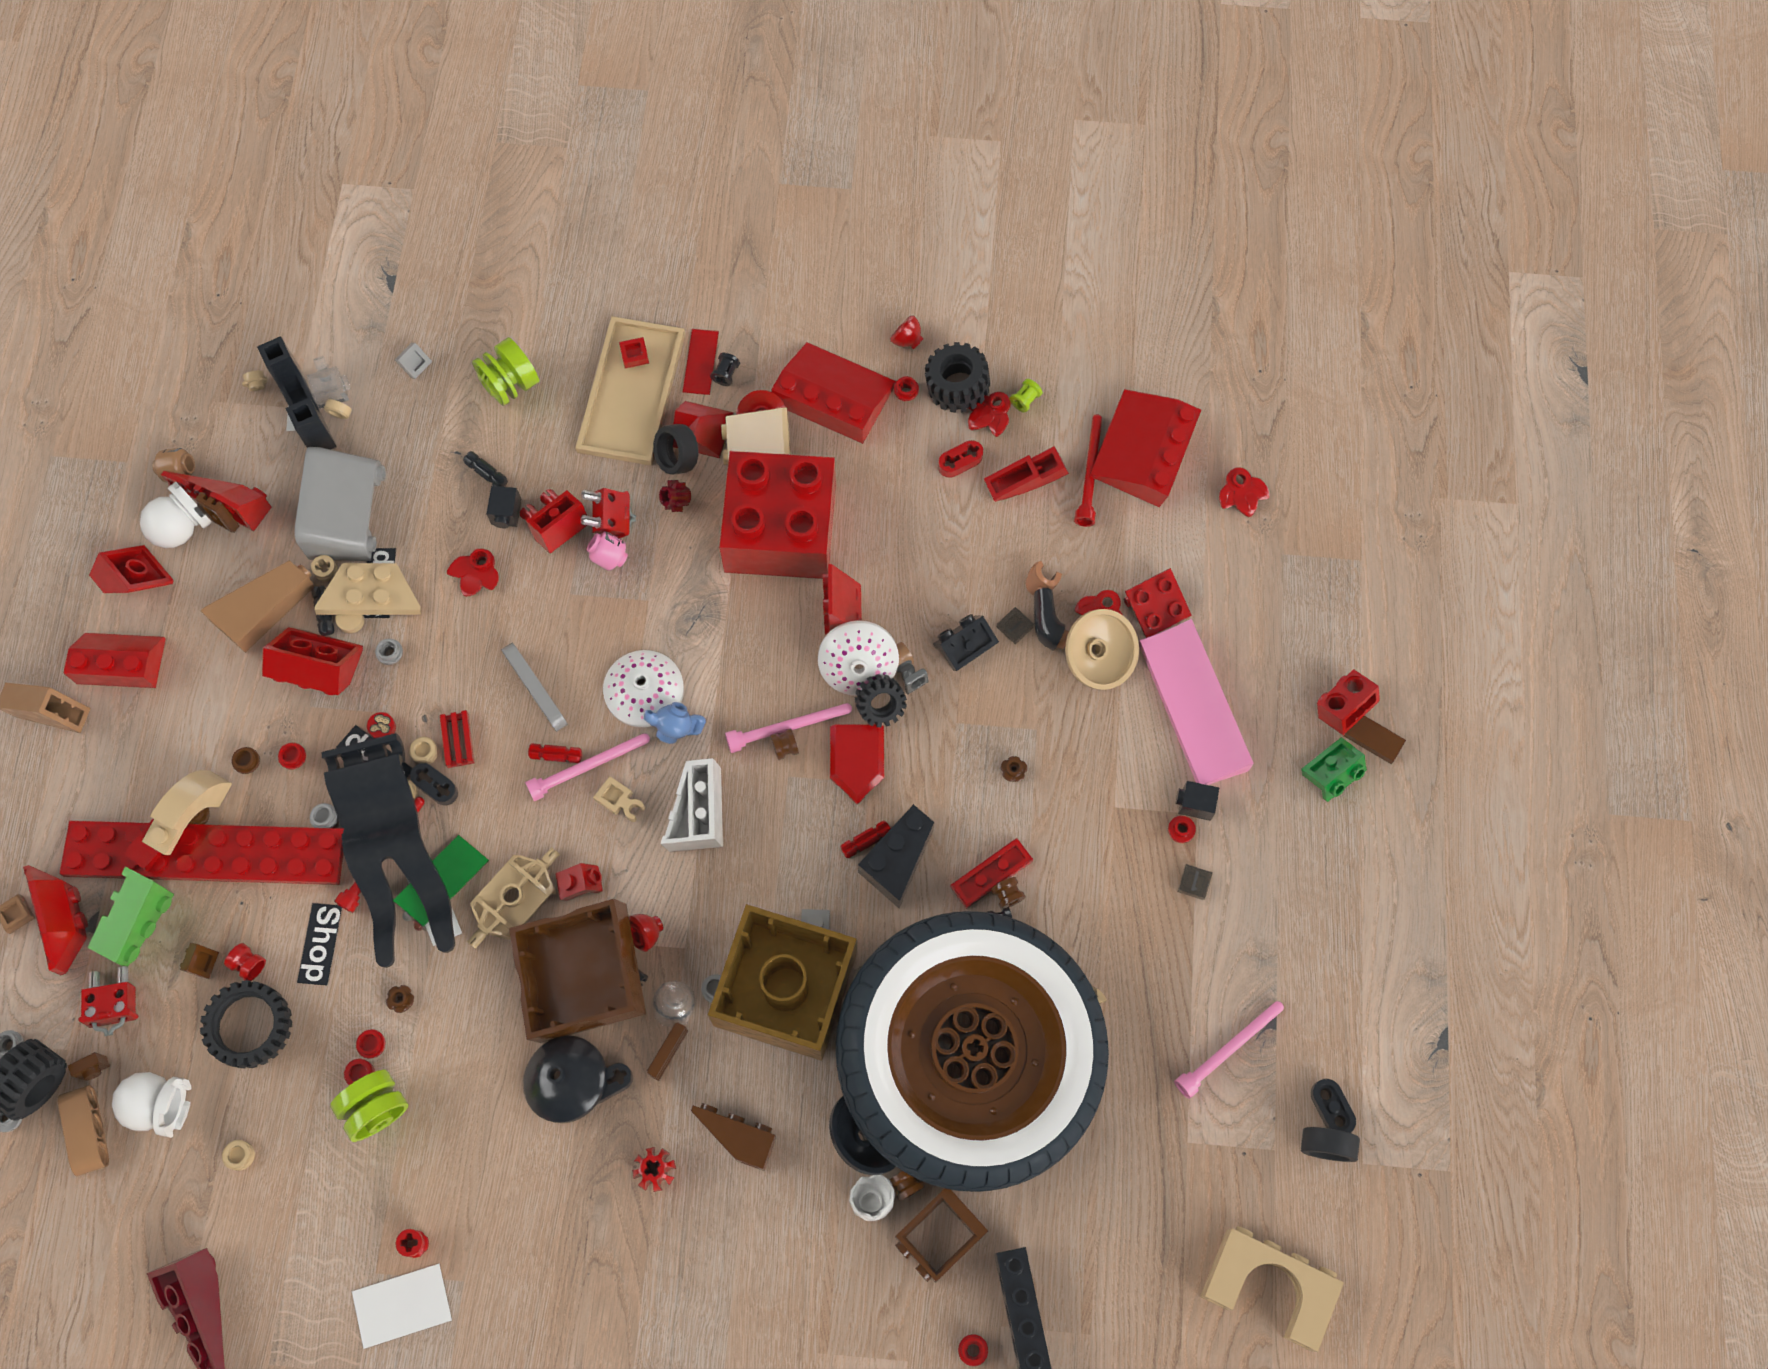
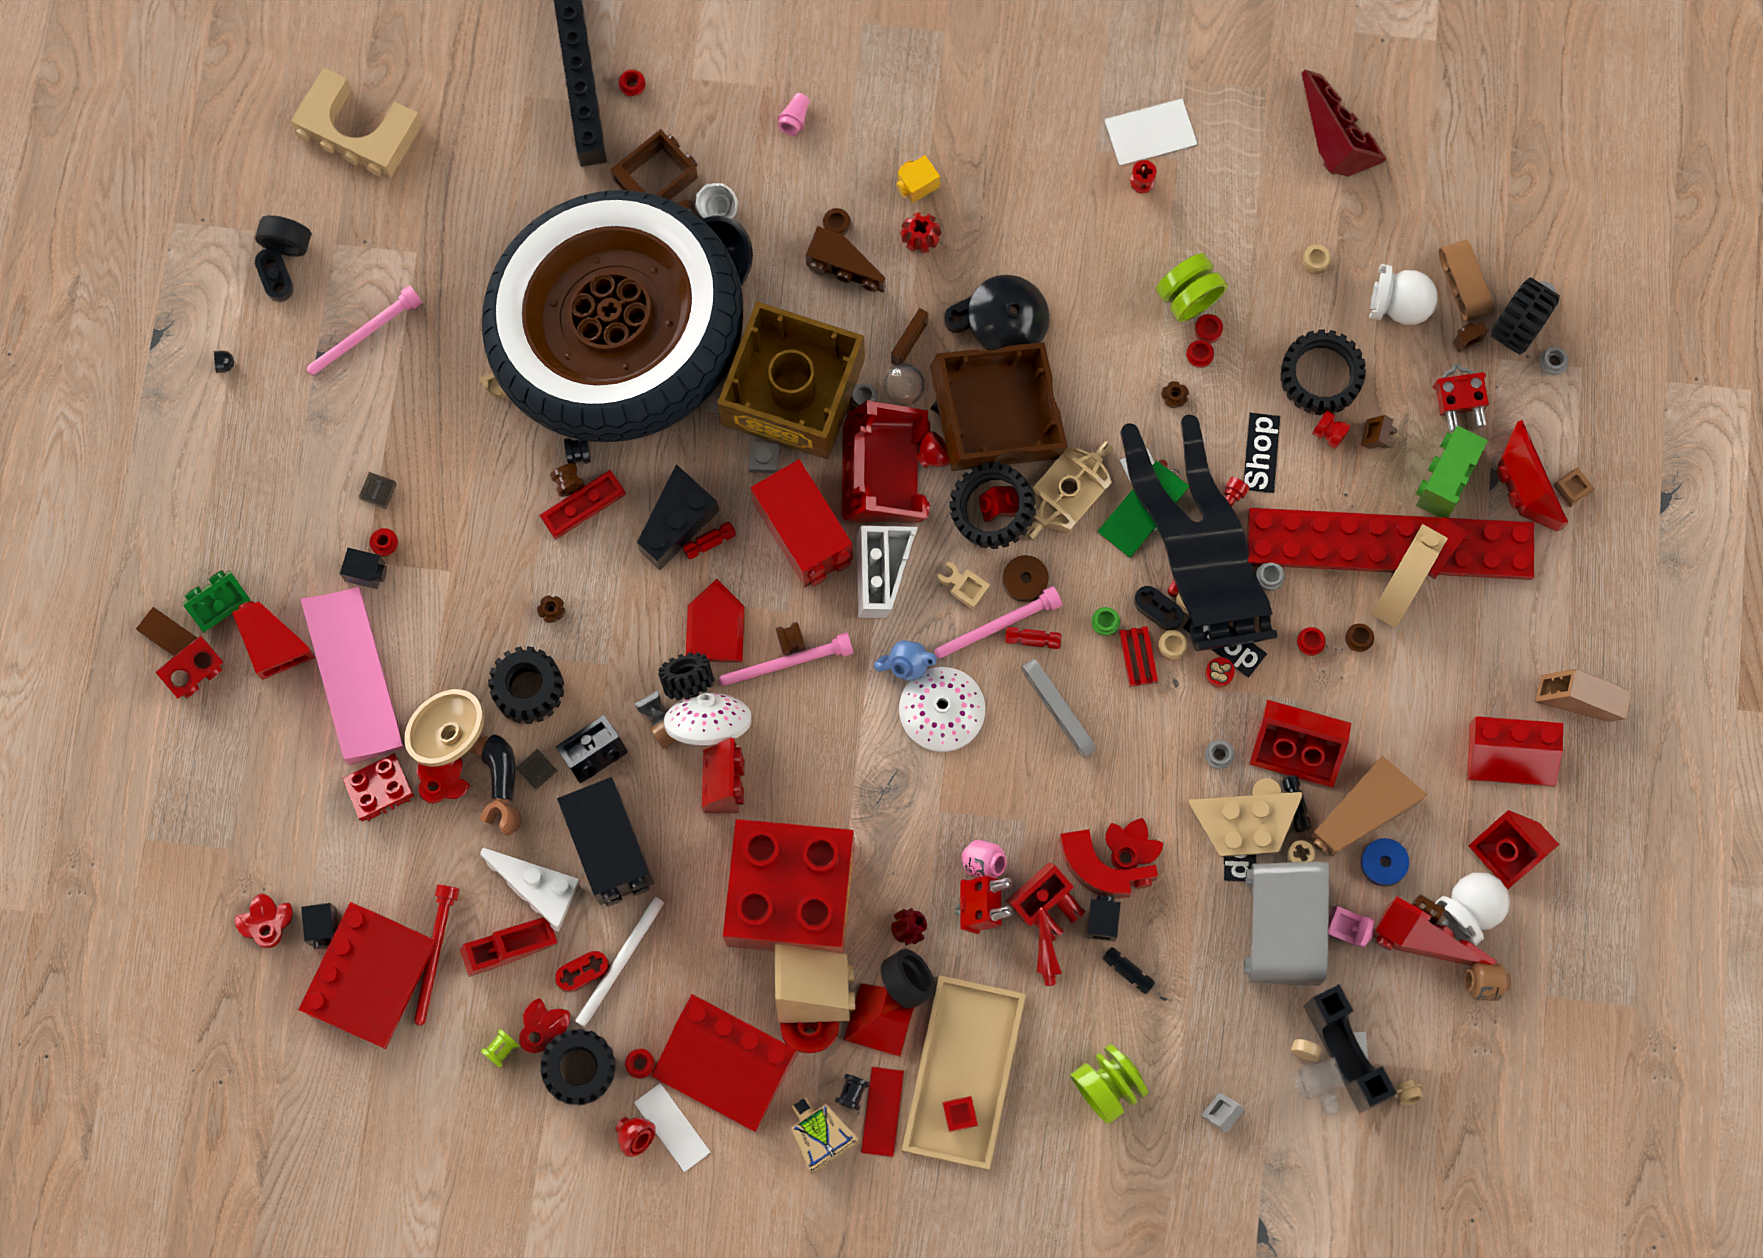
camera: 175 degrees left, 5 degrees up
(242, 556) = (1394, 853): none -> blue piece
(281, 504) = (1350, 927): none -> bright pink bracket
(485, 770) = (1105, 621): none -> bright green plate
(504, 540) = (1095, 875): none -> red arch
(555, 474) = (1047, 960): none -> red piece
(560, 798) = (1028, 566): none -> reddish brown piece
(588, 839) = (971, 483): none -> black tyre
(656, 1232) = (917, 179): none -> yellow brick
(697, 909) = (882, 463): none -> red windscreen
(744, 1185) = (837, 221): none -> reddish brown tile
(750, 336) = (820, 1135): none -> torso
(773, 846) = (802, 524): none -> red brick
(791, 1311) = (793, 116): none -> bright pink cone
(877, 346) = (672, 1127): none -> white sticker
(928, 468) = (619, 962): none -> white piece
(945, 553) = (606, 842): none -> black brick
(1001, 522) = (541, 887): none -> white wing
(1034, 672) = (519, 663): none -> black tyre
(1193, 487) = (319, 924): none -> black brick
(1278, 731) = (269, 641): none -> red slope
(1370, 1011) = (223, 361): none -> black hinge

